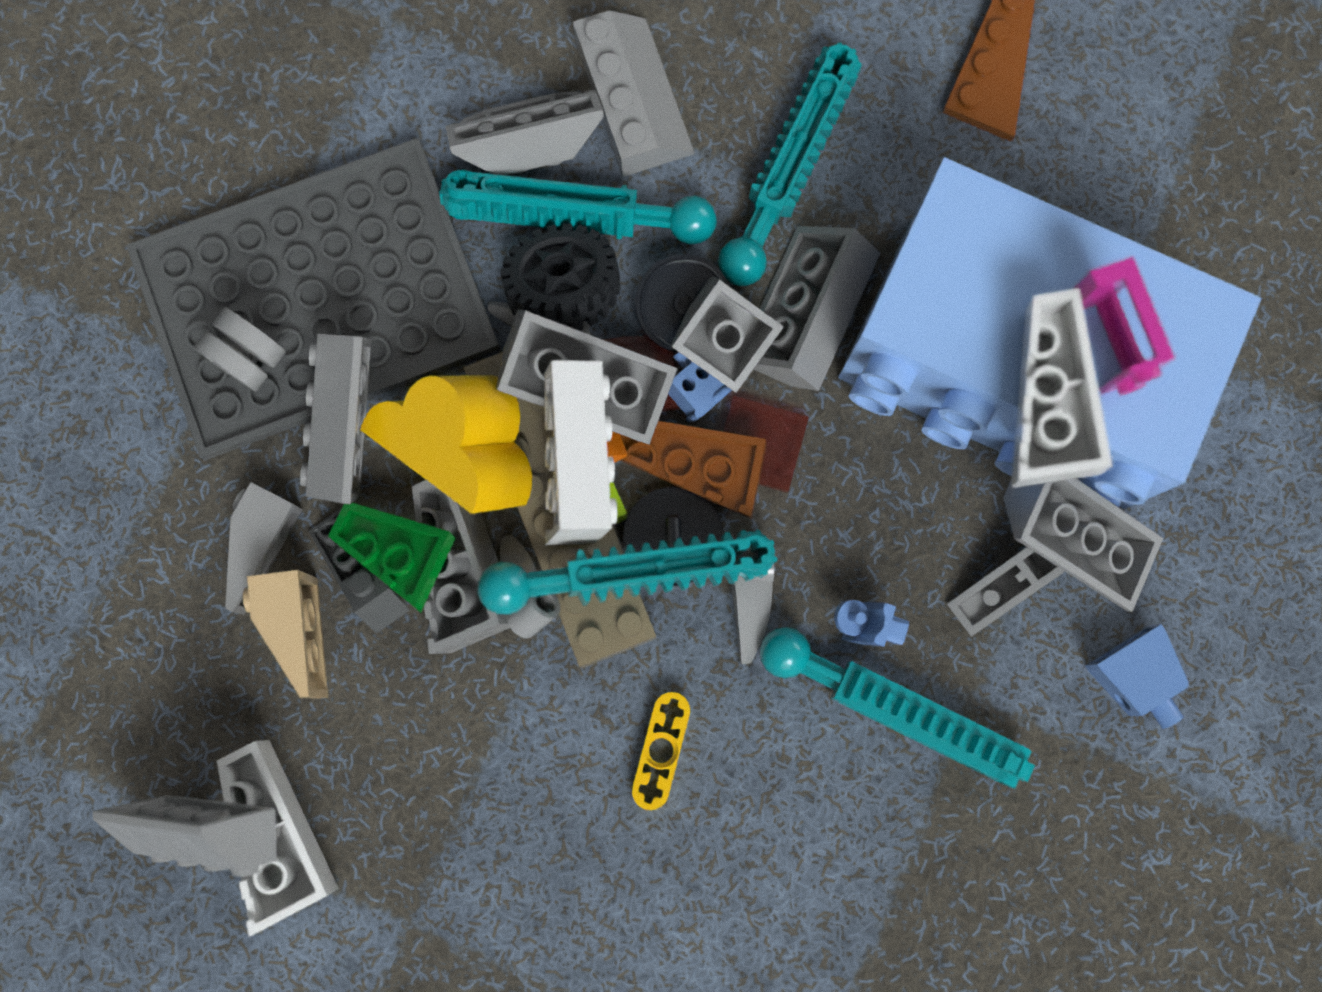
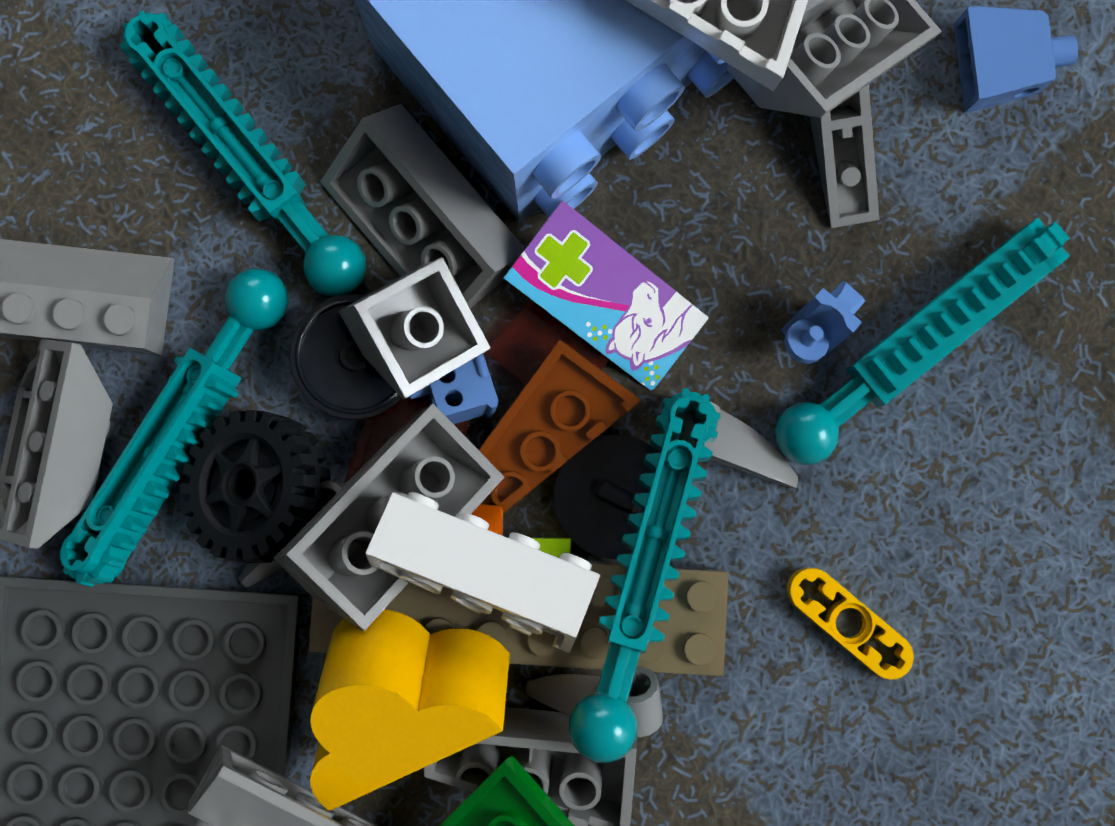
camera: 65 degrees left, 5 degrees up
(813, 460) = (606, 296): none -> sticker

